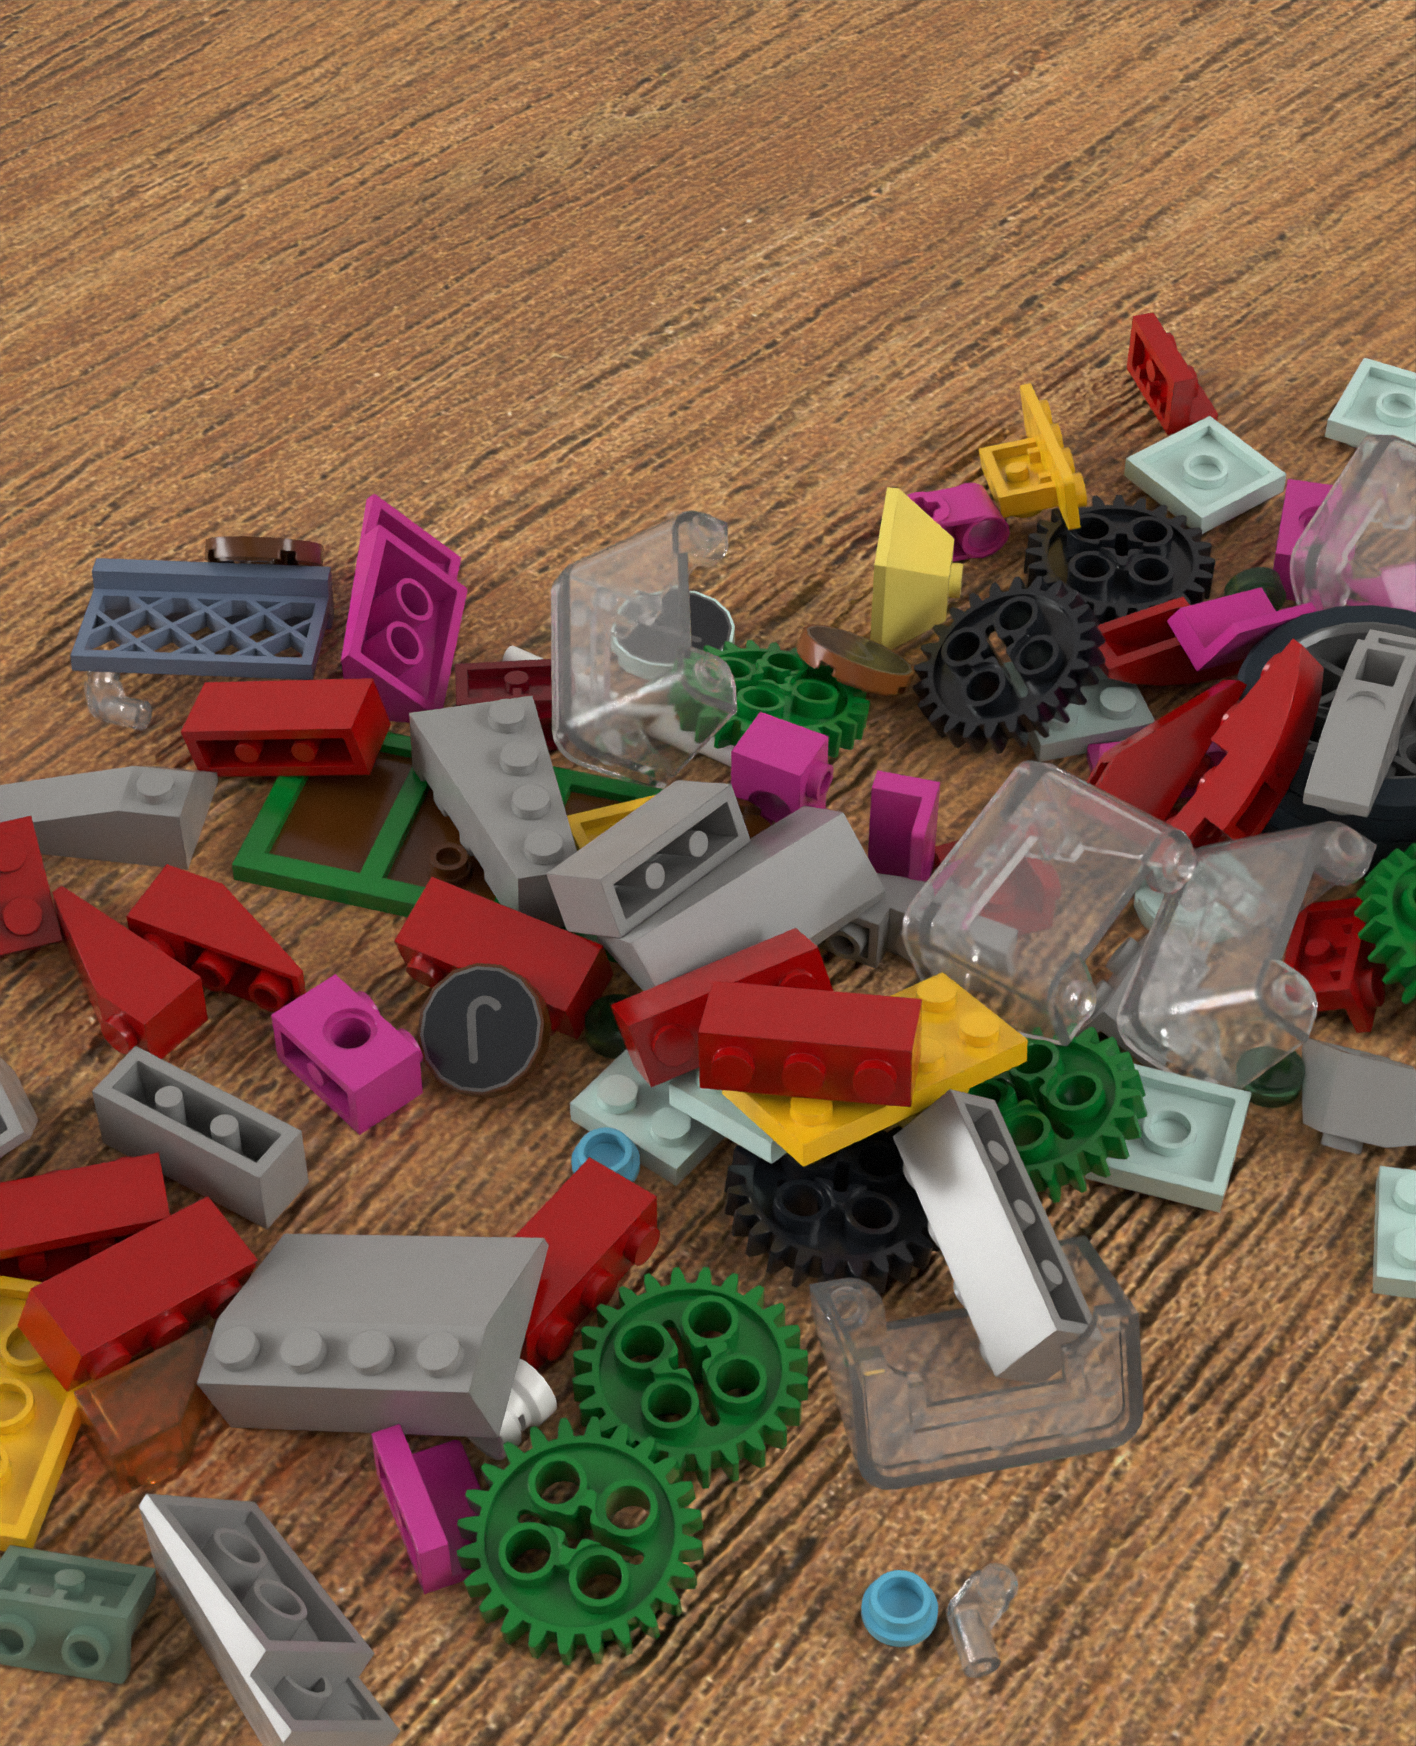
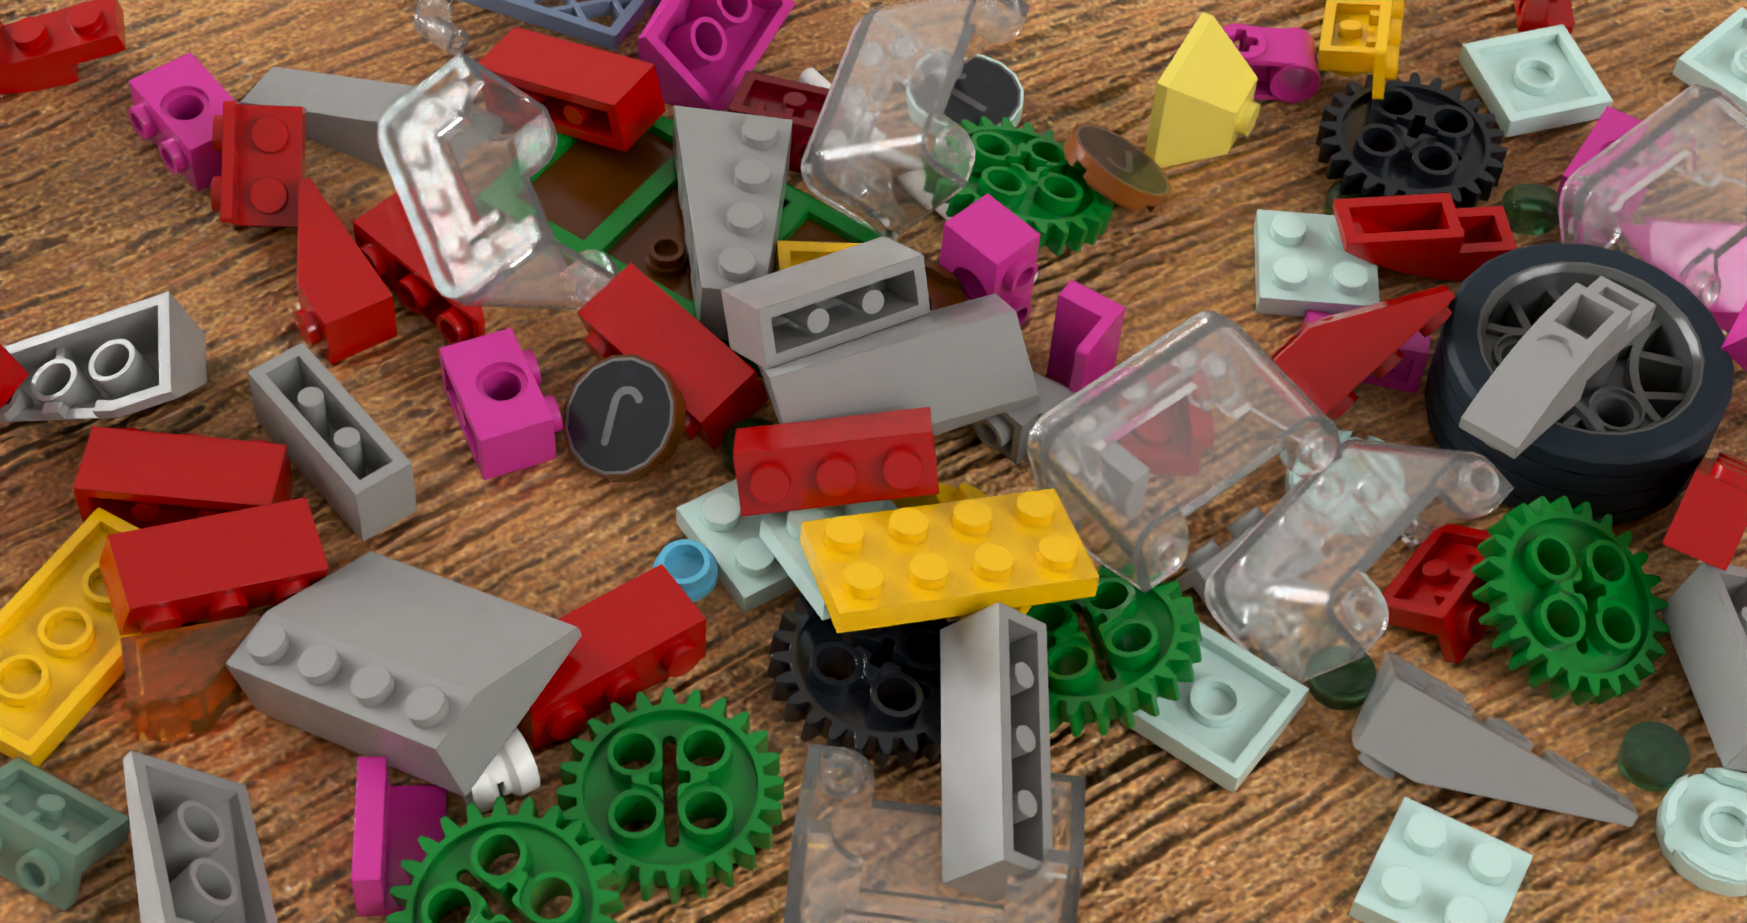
camera: 15 degrees right, 5 degrees up
(215, 822) = (463, 171): none -> clear windscreen
(810, 1043) = (882, 521): red brick -> none
(1048, 639) = (1296, 208): black gear -> none
(1228, 626) = (1474, 233): dark pink panel -> none
(1263, 748) = (1445, 364): red slope -> none

